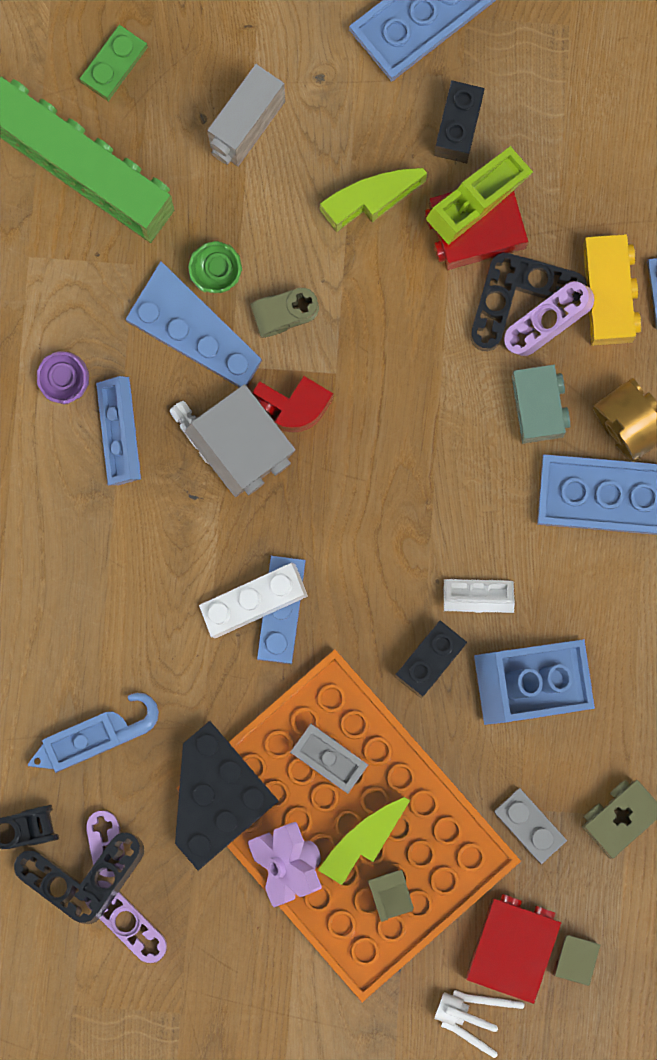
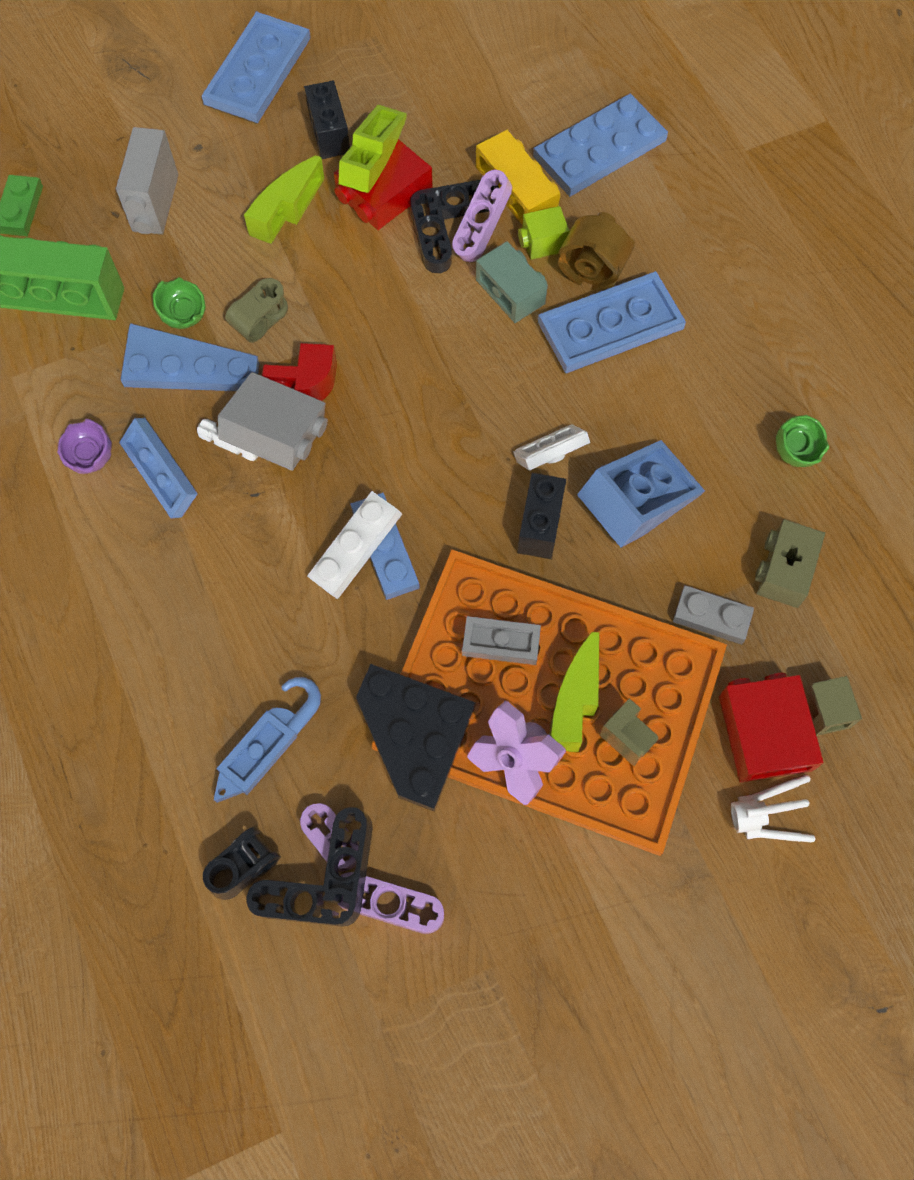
camera: 30 degrees left, 15 degrees down
(600, 365) = (543, 232): none -> lime brick

